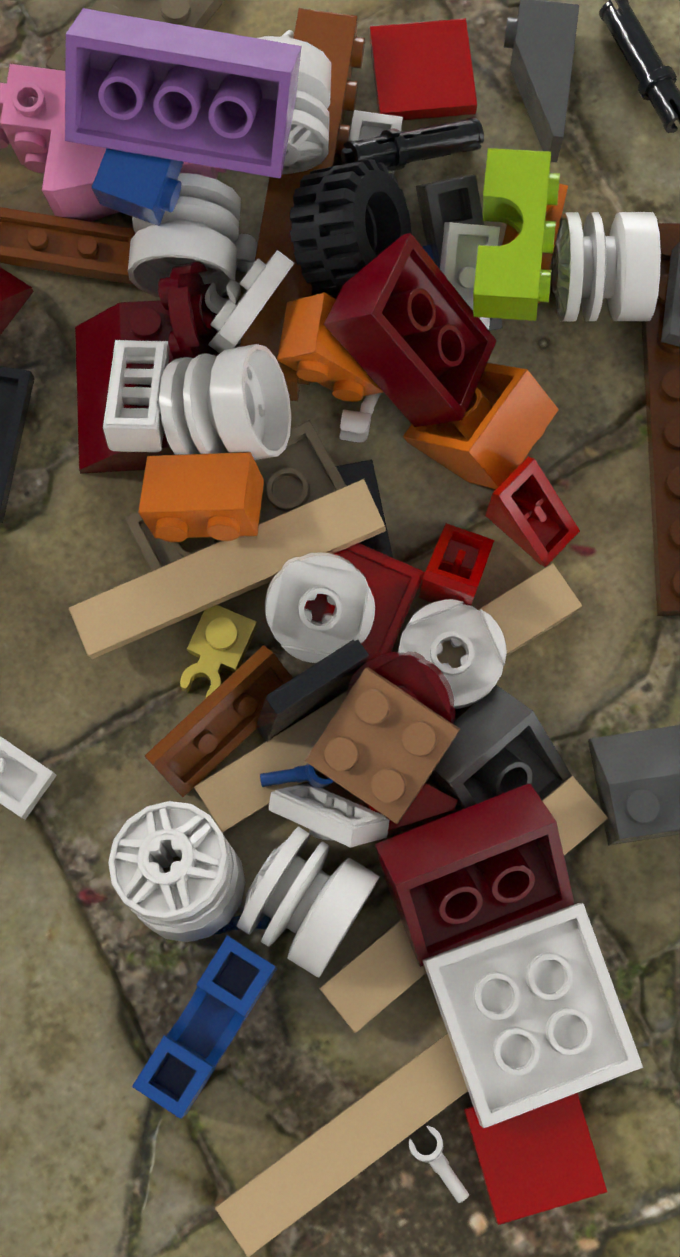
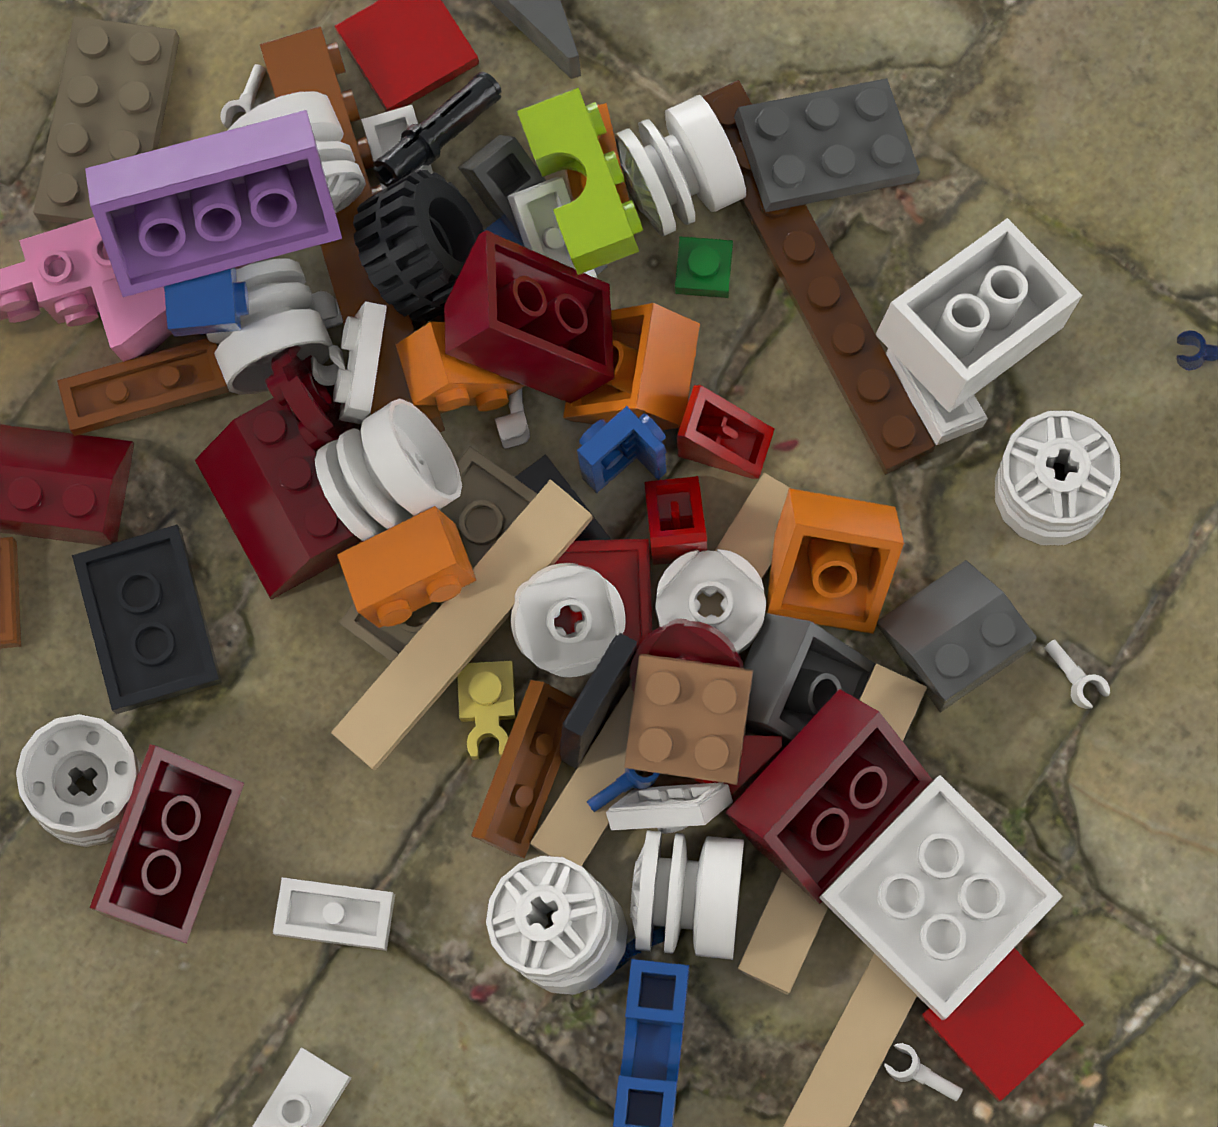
camera: 15 degrees left, 0 degrees up
(135, 427) = (313, 532): white slope -> none
(437, 477) = (616, 444): none -> blue bracket
(578, 667) = (833, 560): none -> orange slope
(584, 366) = (703, 267): none -> green plate

